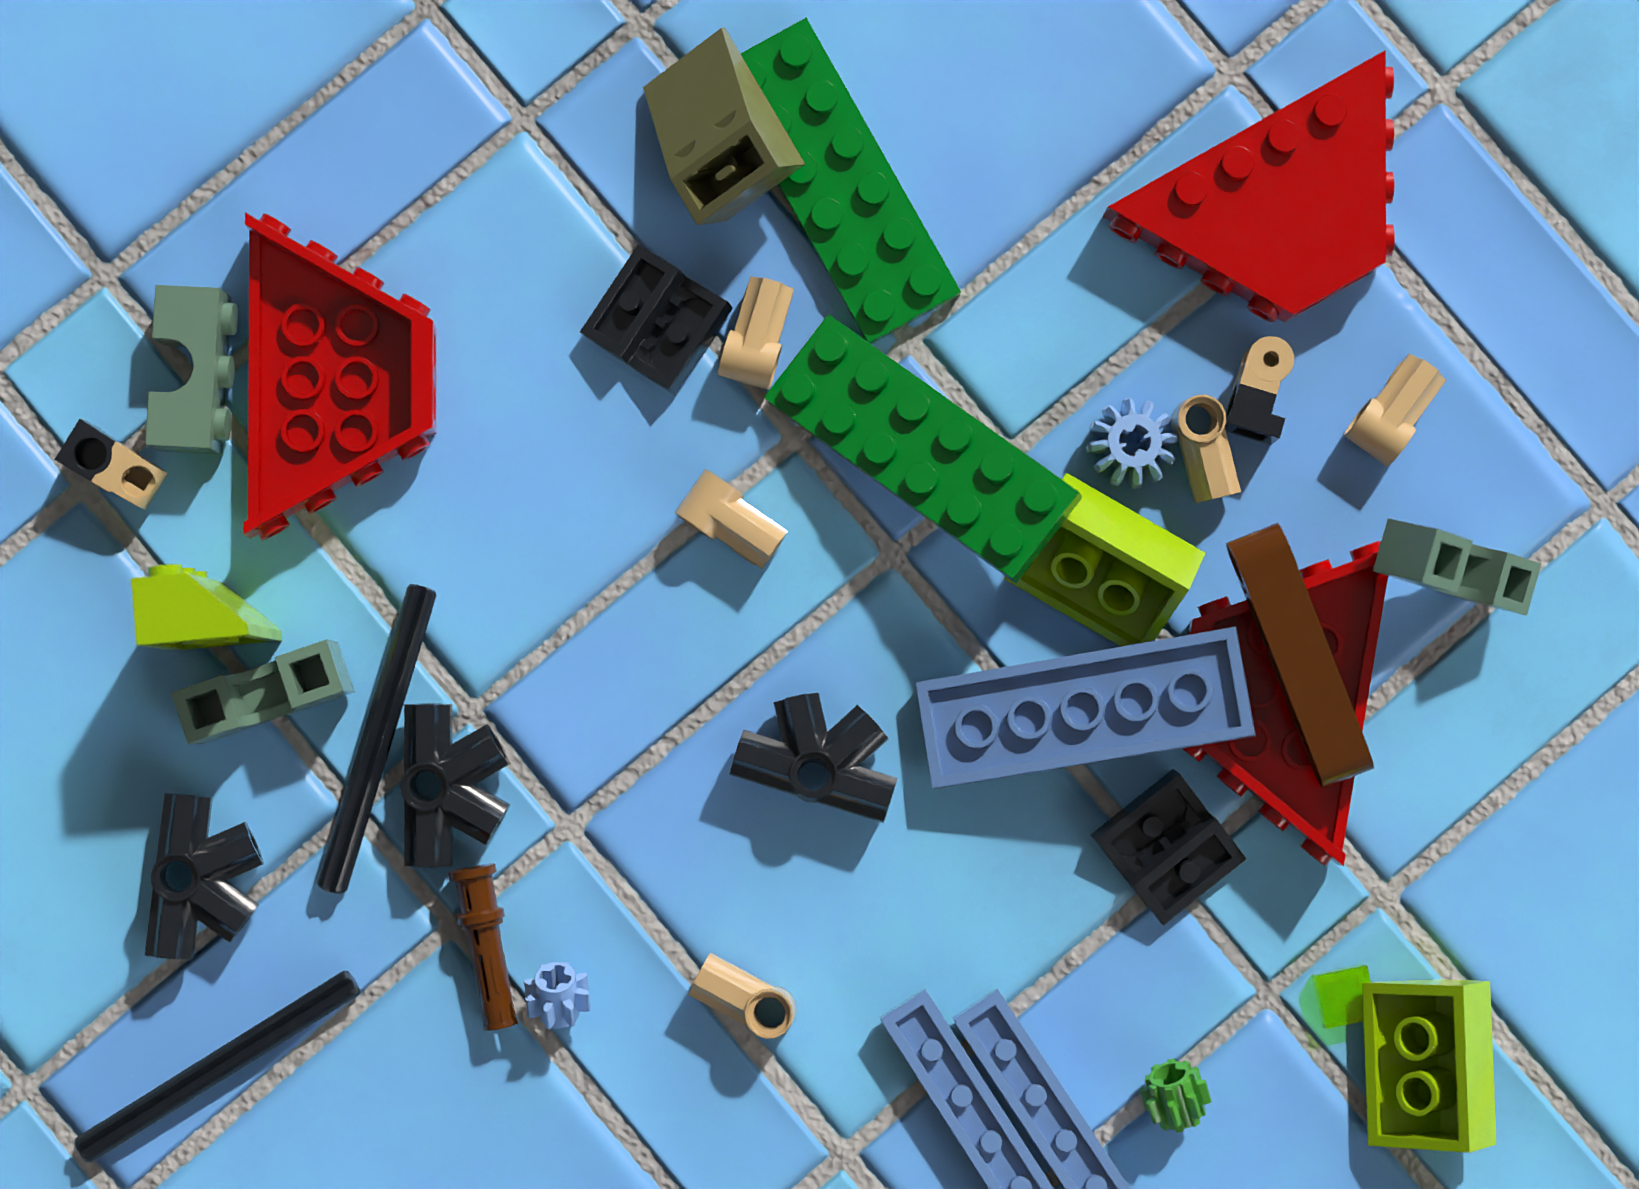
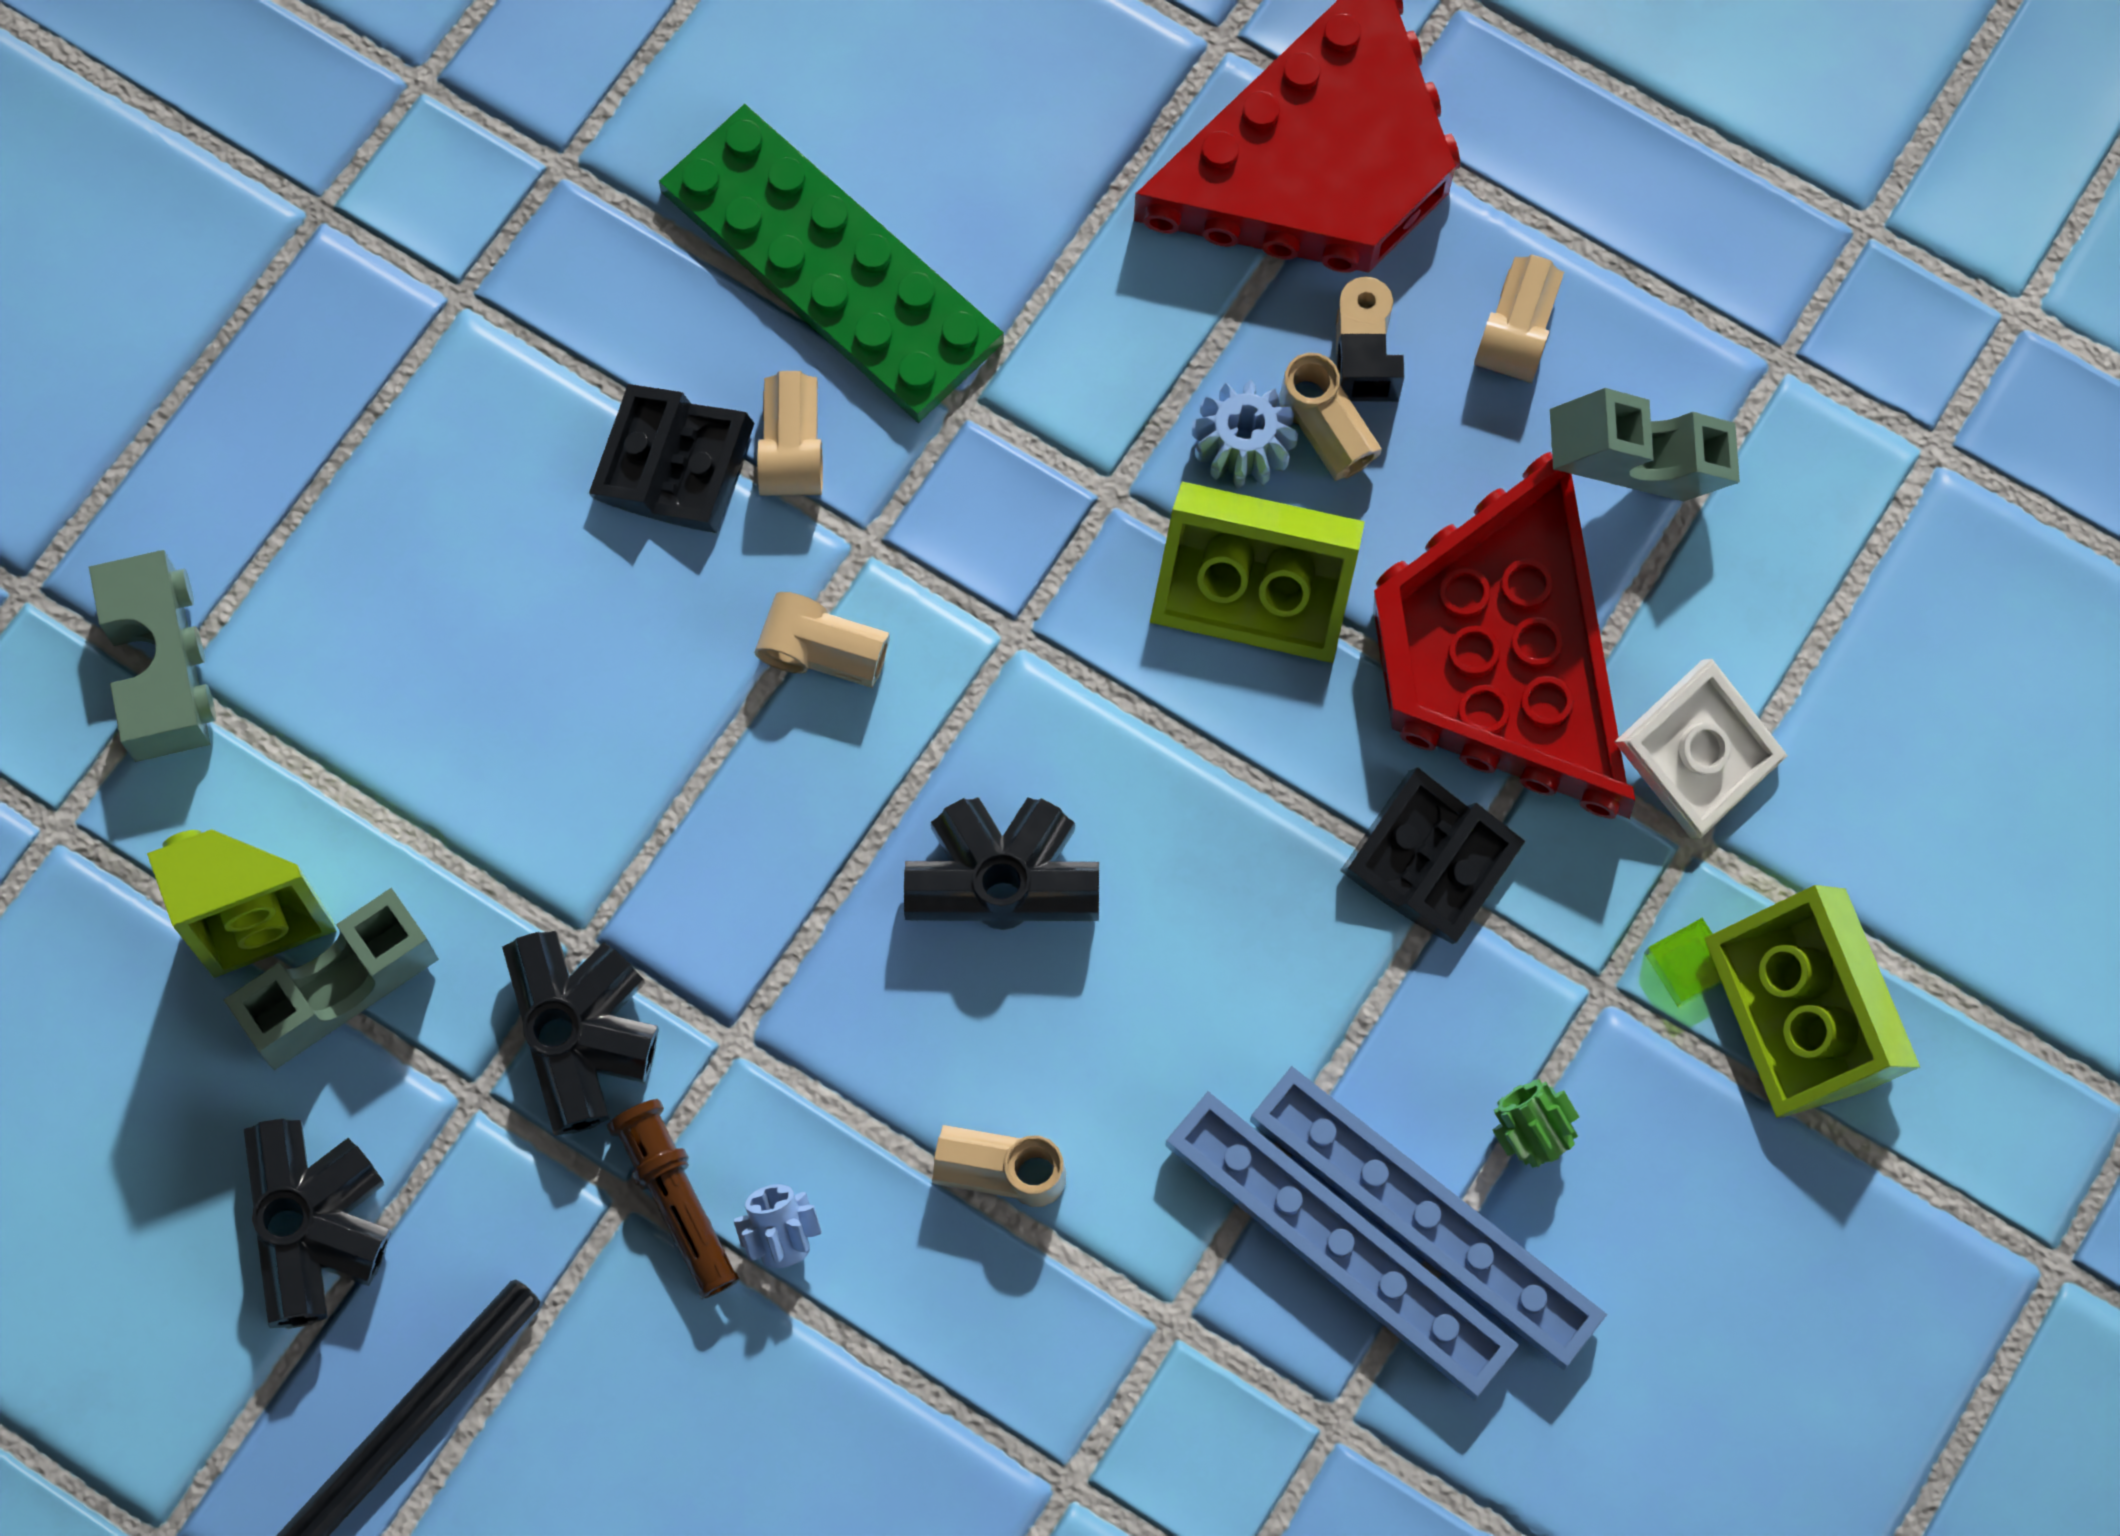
camera: 20 degrees left, 15 degrees down
(110, 464) = (83, 783): leg -> none
(332, 377) = (318, 615): red piece -> none
(376, 739) = (479, 1006): black axle -> none
(718, 131) = (685, 237): olive slope -> none
(923, 448) = (1014, 495): green plate -> none
(1085, 708) = (1286, 720): medium blue plate -> none
(1300, 655) = (1506, 588): reddish brown beam -> none
(1415, 827) = (1701, 748): none -> white tile

